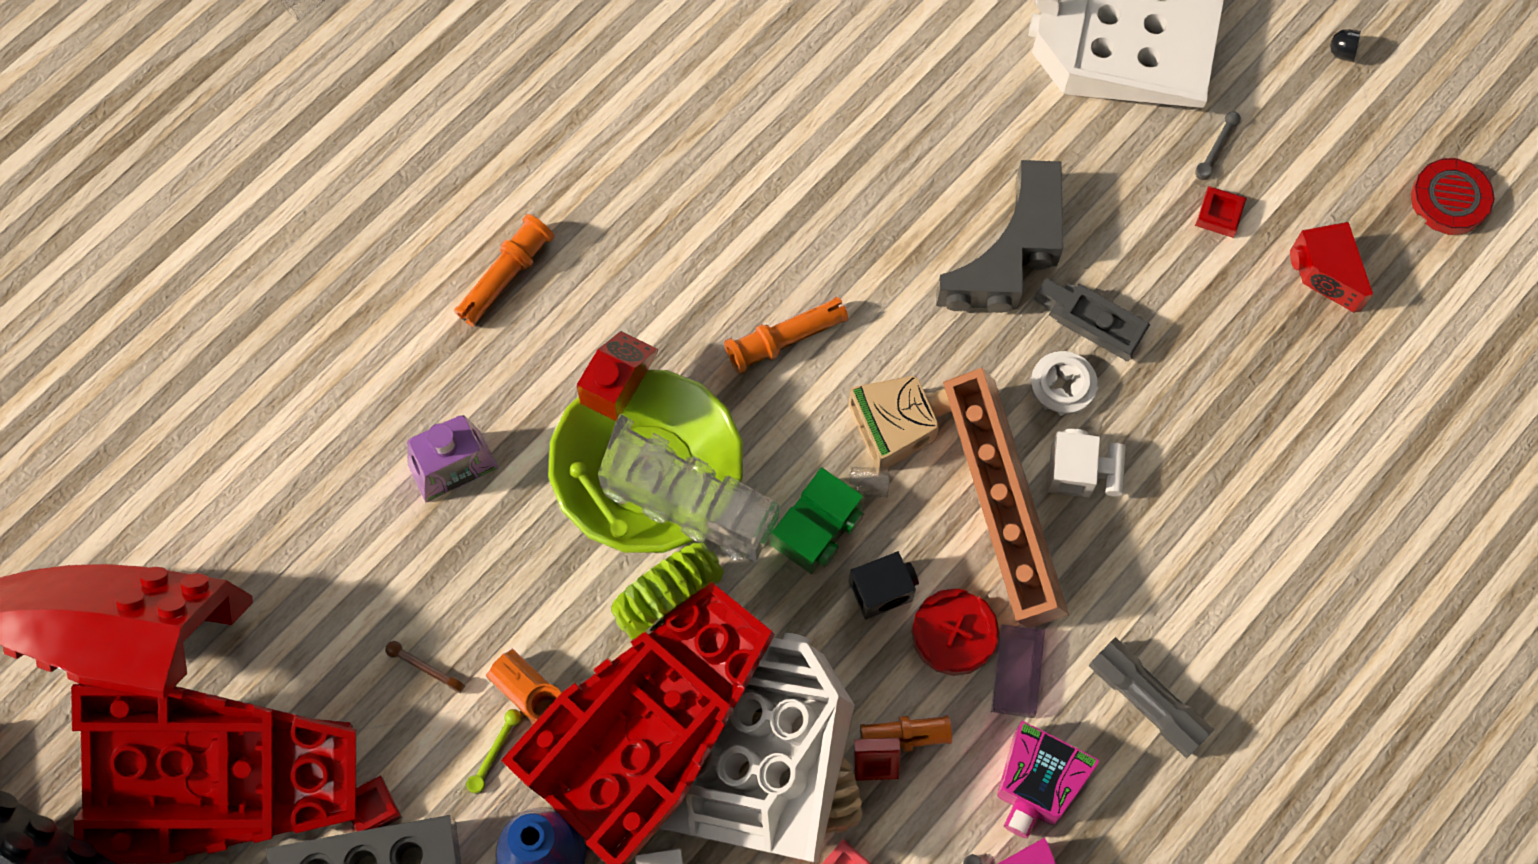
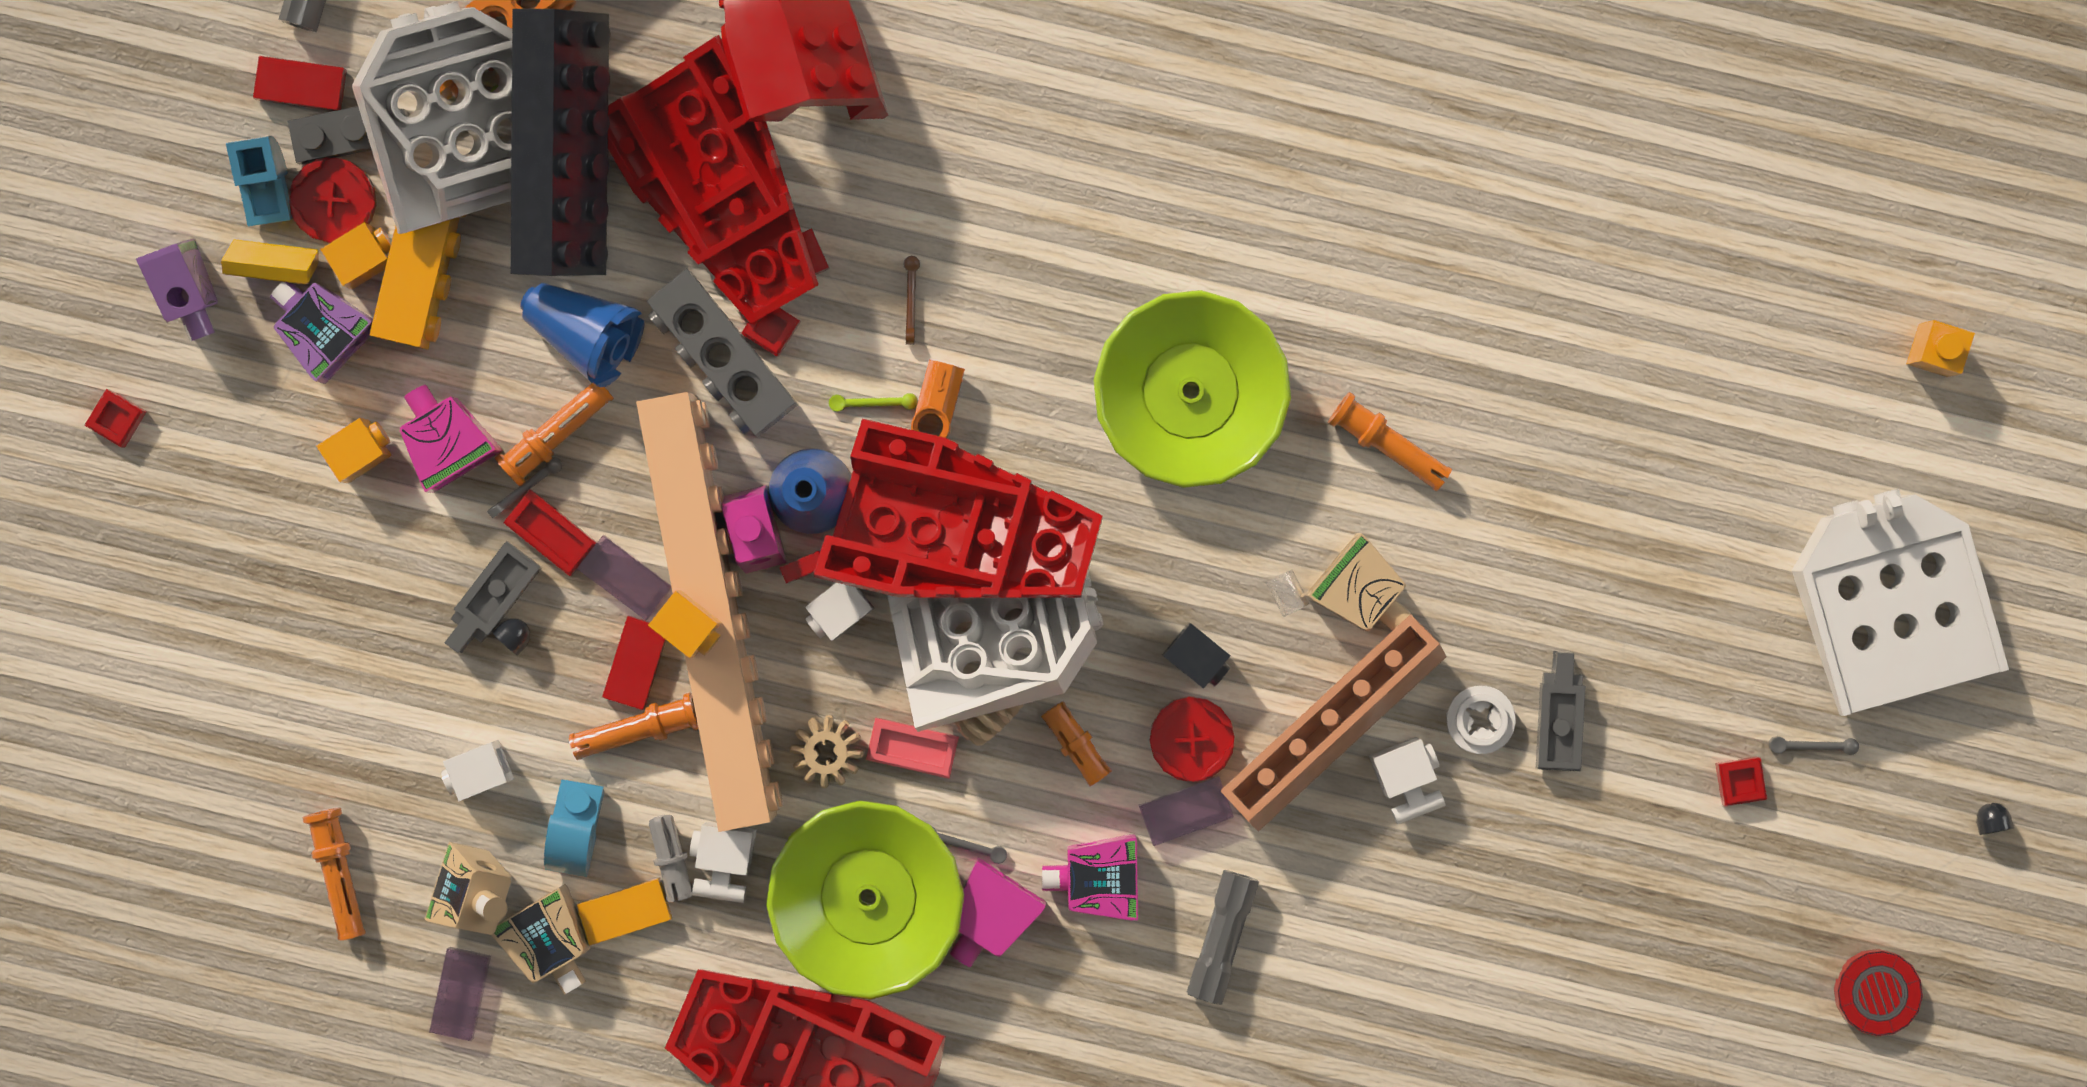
camera: 65 degrees right, 20 degrees up
(448, 457) = (1103, 211): medium lavender torso -> none
(515, 255) = (1331, 151): orange pin -> none
(615, 374) = (1255, 320): red slope -> none
(618, 527) = (1146, 337): lime hinge -> none
(665, 588) = (1081, 477): lime gear -> none
(685, 493) = (1172, 448): clear wedge -> none
(817, 521) = (1224, 568): green brick -> none
(876, 759) = (1039, 730): red tile -> none
(1030, 239) = (1611, 618): dark grey arch -> none
(1332, 265) = (1736, 910): red slope -> none

